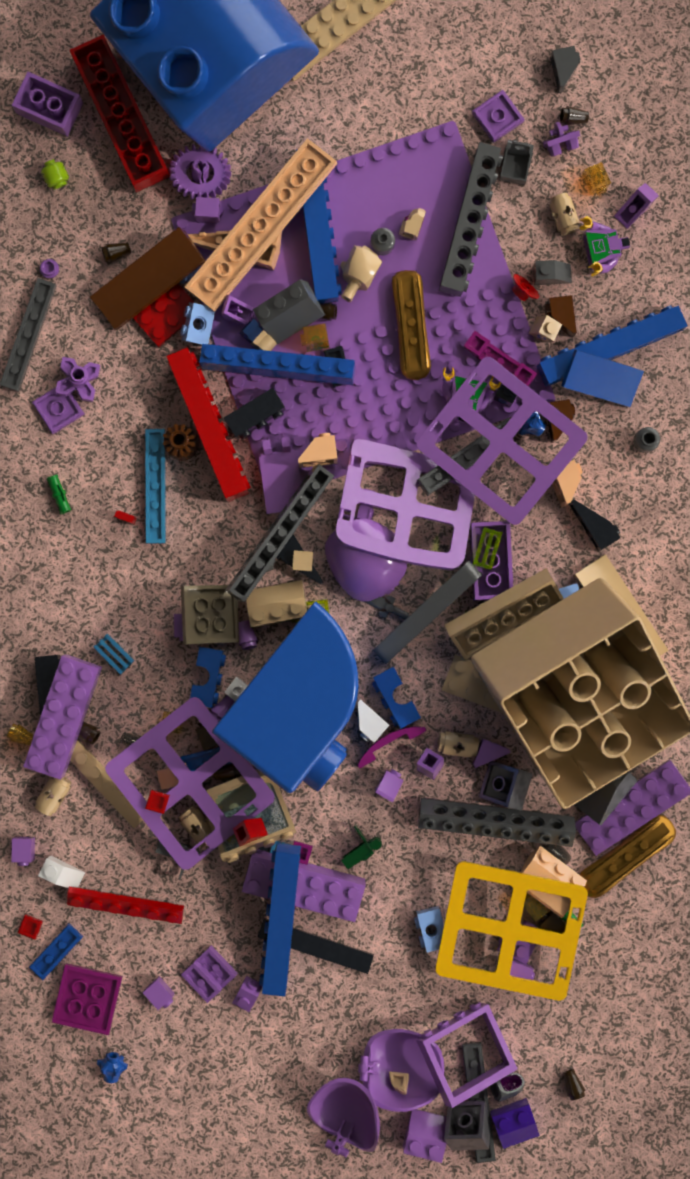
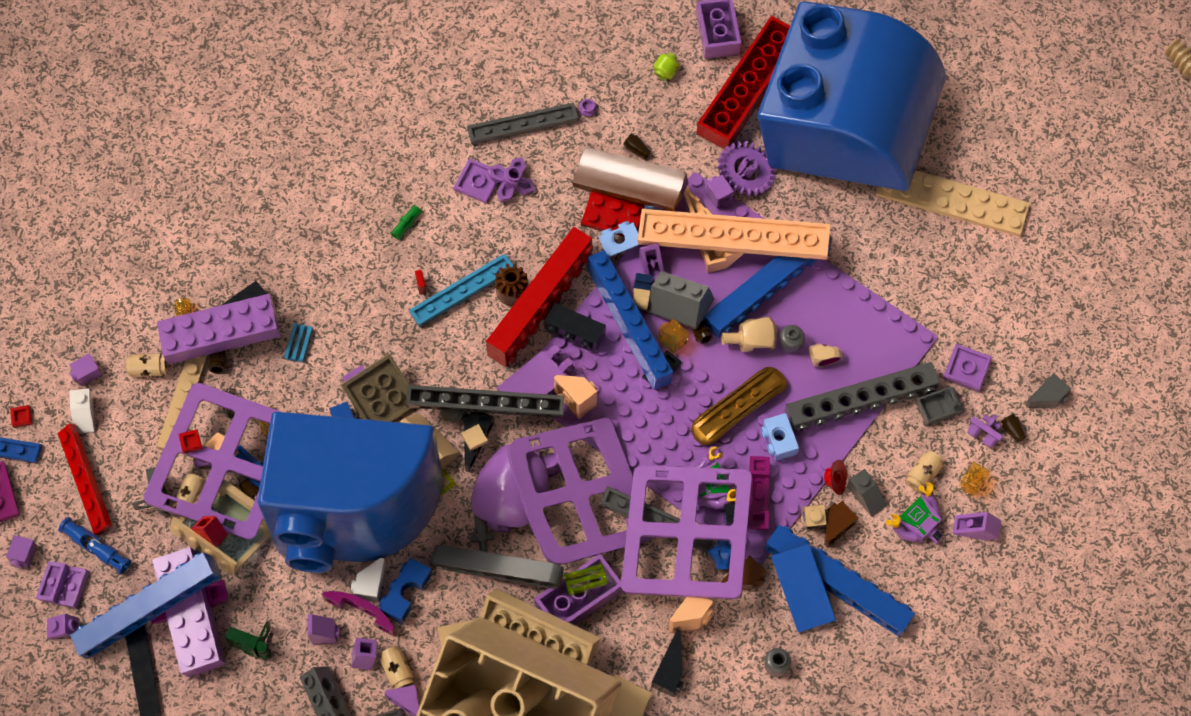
camera: 60 degrees right, 20 degrees down
(200, 926) = (105, 553): none -> blue piece
(473, 307) = (779, 426): none -> light blue brick

